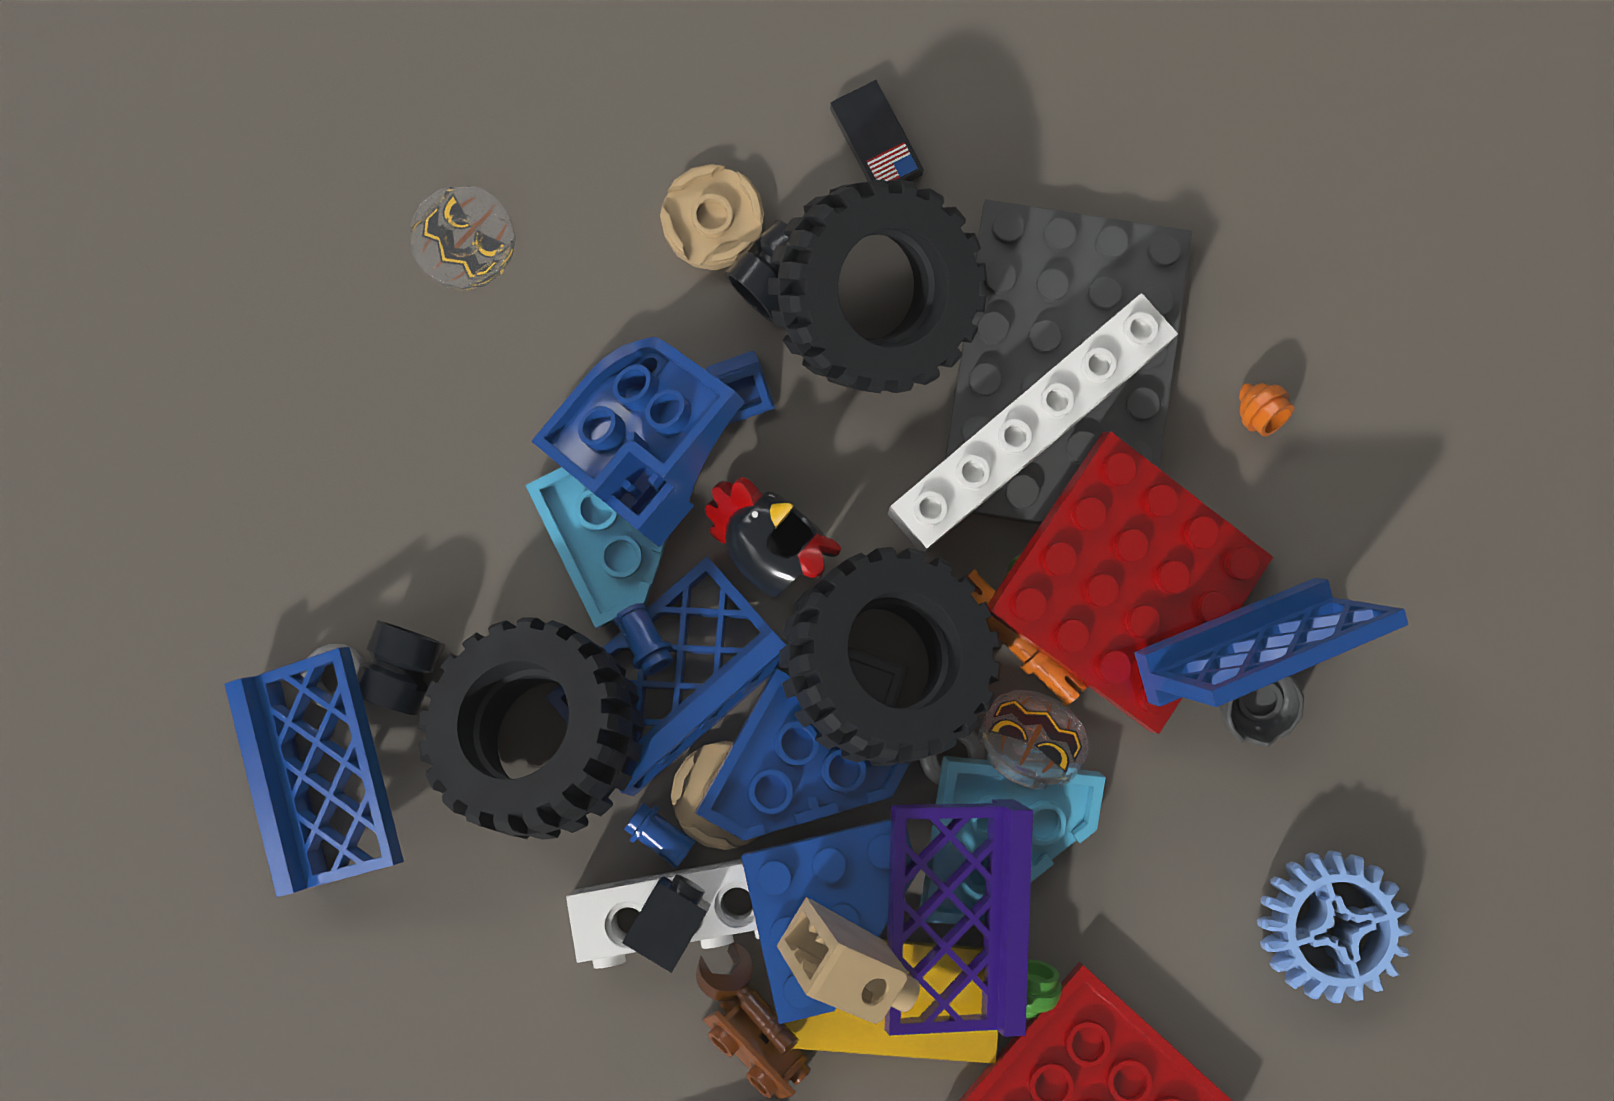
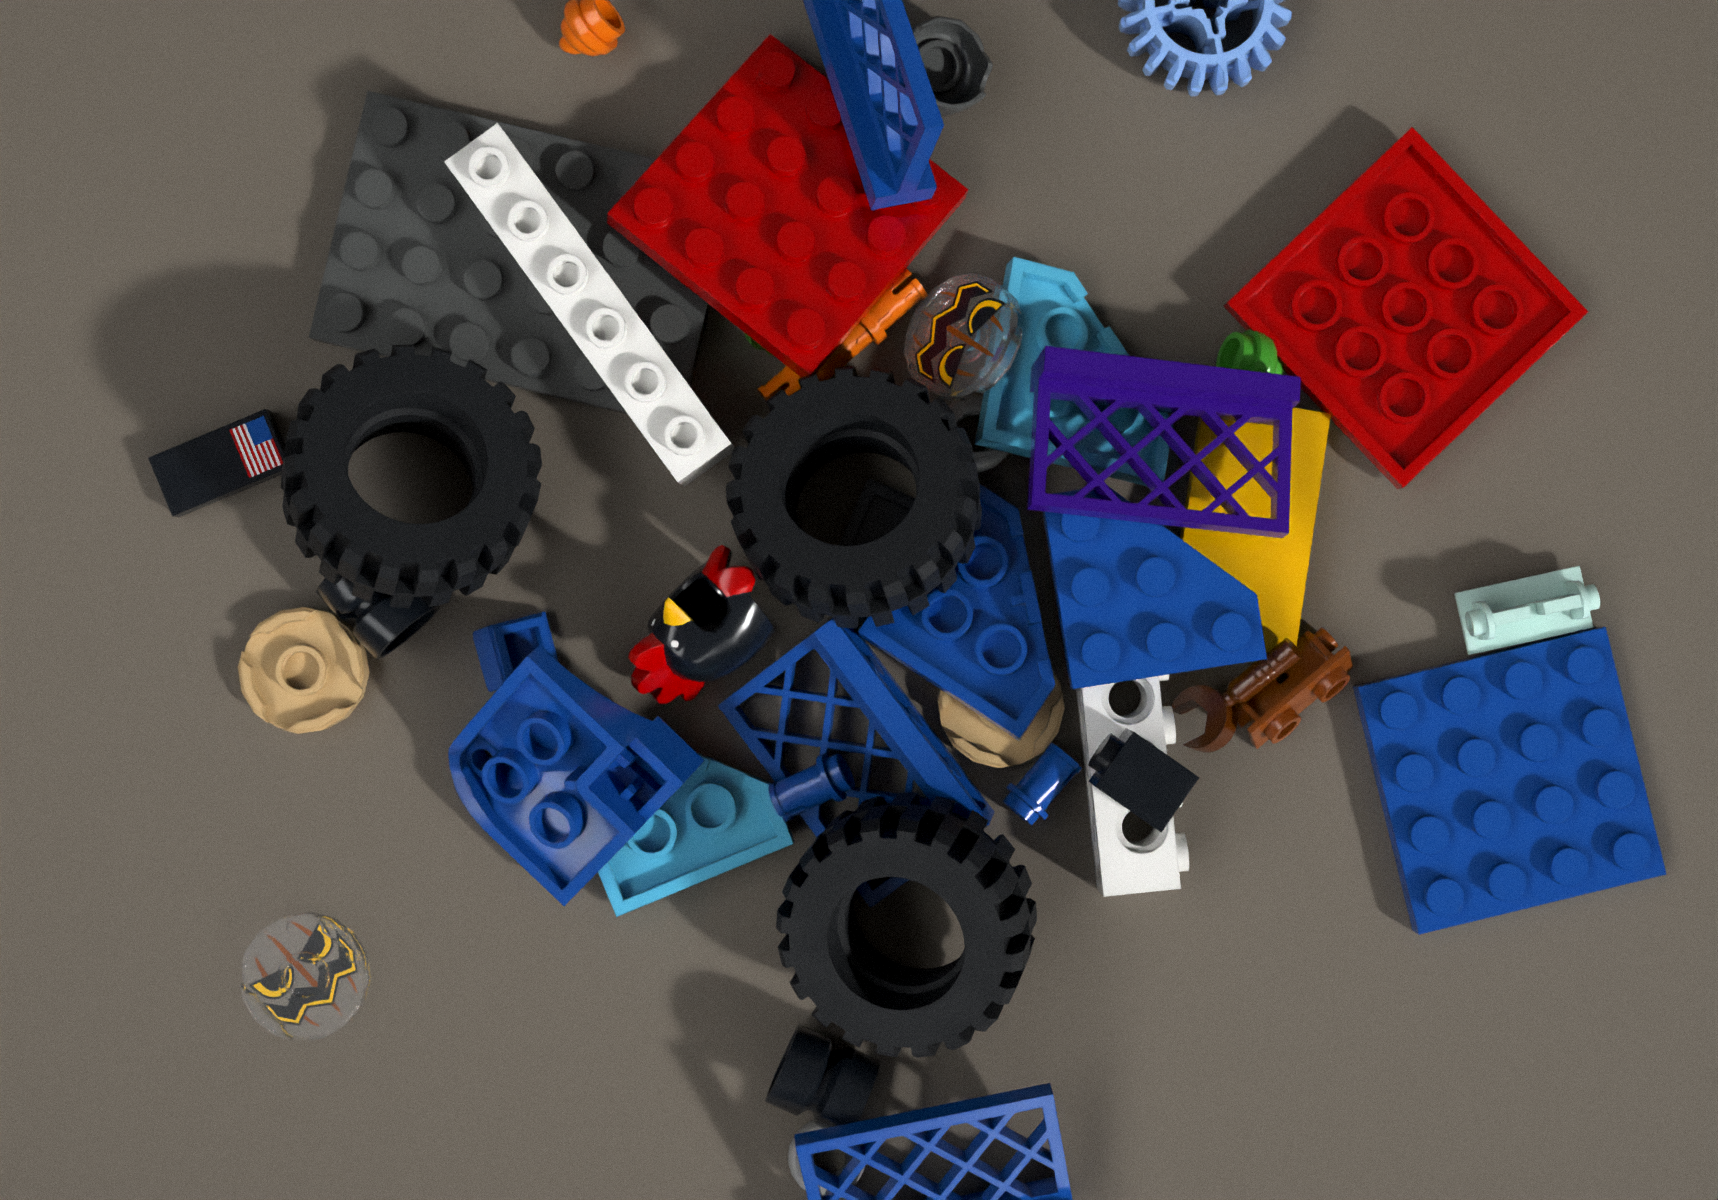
camera: 85 degrees left, 5 degrees up
(845, 964) = (1204, 576): tan torso -> none

